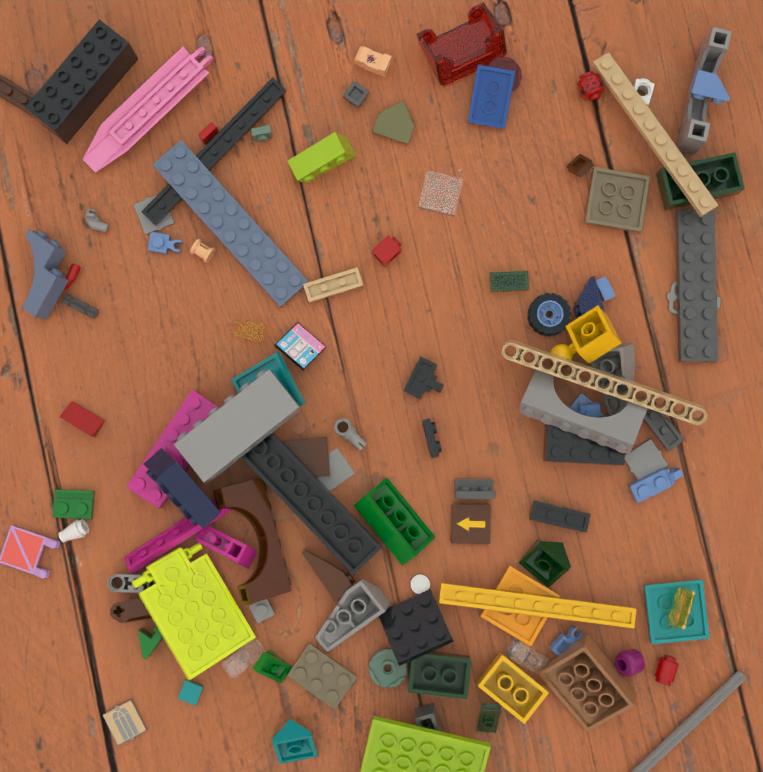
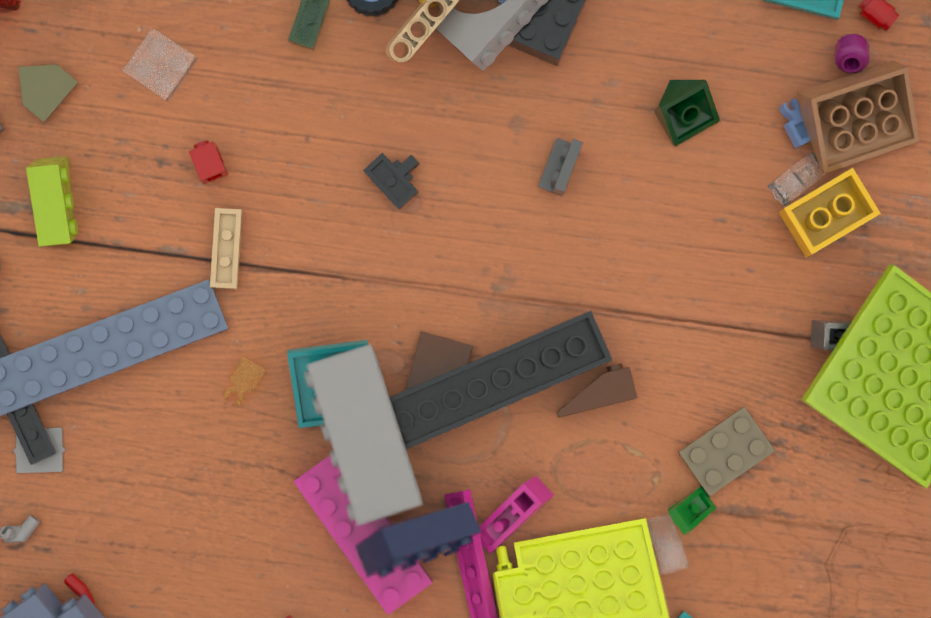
camera: 65 degrees left, 0 degrees up
(80, 306) = (124, 592): dark grey axle -> none
(161, 243) = (83, 454): medium blue plate -> none
(202, 250) = (114, 403): light nougat bush -> none
(262, 610) = (613, 497): light grey plate -> none
(270, 574) = (571, 468): reddish brown arch -> none
(293, 743) = (799, 518): teal slope -> none
(300, 346) = (290, 320): piece -> none
(339, 470) = (469, 331): light grey piece -> none
(350, 435) = (430, 298): light grey pin -> none
(355, 610) = (659, 377): light grey wedge -> none
(385, 678) = (761, 362): sand green plate -> none
(394, 521) = (563, 284): green slope -> none
(415, 627) = (708, 307): black plate -> none
(420, 583) = (655, 282): white piece -> none
(433, 445) = (484, 197): black plate -> none
(440, 675) = (778, 299): dark green brick -> none
(470, 524) = (602, 188): reddish brown tile -> none
(488, 717) = (856, 257): clear green plate -> none
(520, 626) = (729, 165): light orange plate -> none
(537, 605) = (737, 142): yellow plate -> none
(559, 516) = (635, 71): black plate -> none

